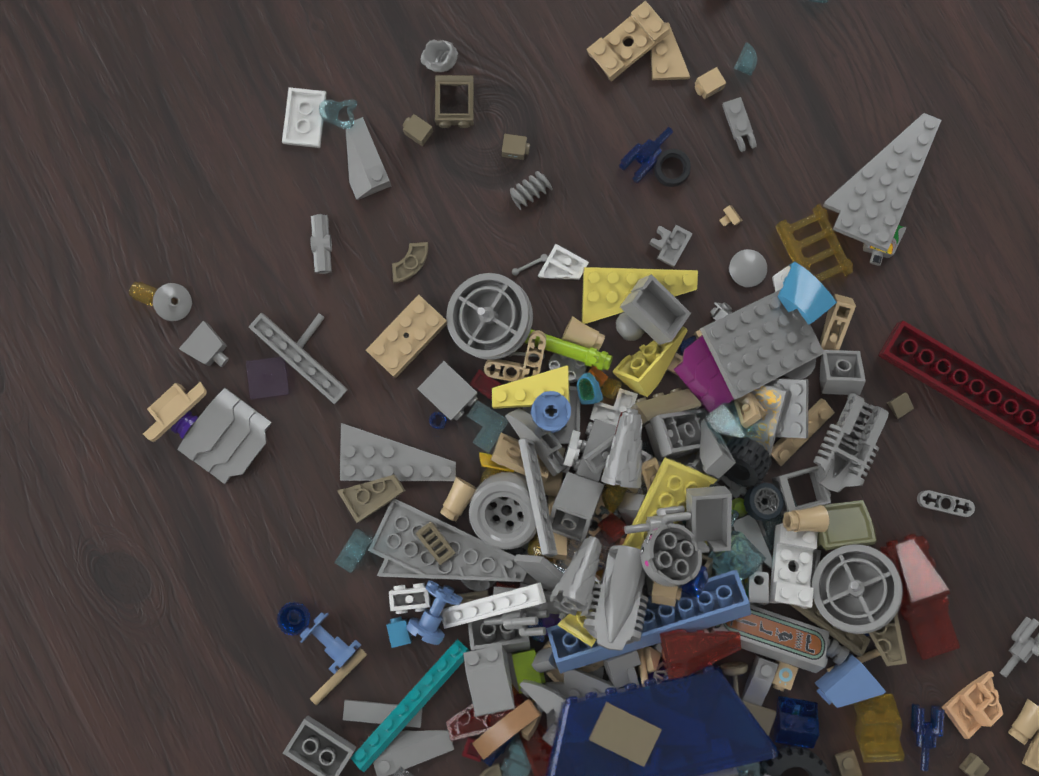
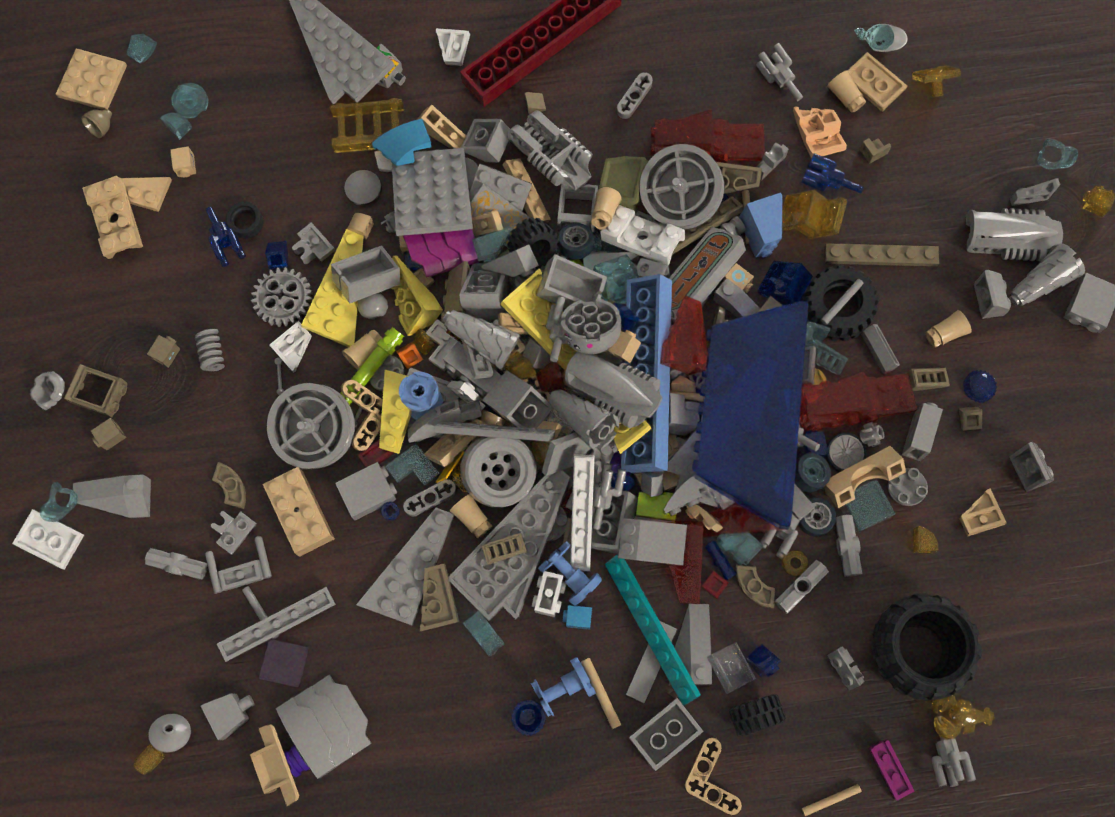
camera: 65 degrees left, 10 degrees down
(332, 307) = (240, 574): none -> light grey plate
(369, 283) = (233, 531): none -> light grey plate
(455, 453) = (440, 486): none -> light grey beam
(506, 728) = (704, 542): medium nougat slope -> none
(589, 389) = (415, 359): rock -> none
(590, 239) = (285, 281): none -> light grey gear
(625, 734) = (742, 425): dark tan tile -> none
(648, 213) = (277, 254): none -> clear blue brick
(707, 281) = (361, 224): none -> tan brick
(731, 216) = (310, 184): tan tile -> none
(739, 122) = (230, 150): light grey hinge -> none
(778, 60) = (189, 100): none -> clear light blue tile
(924, 669) = (772, 159): none -> light grey plate
(933, 299) = (453, 45): none -> white wing

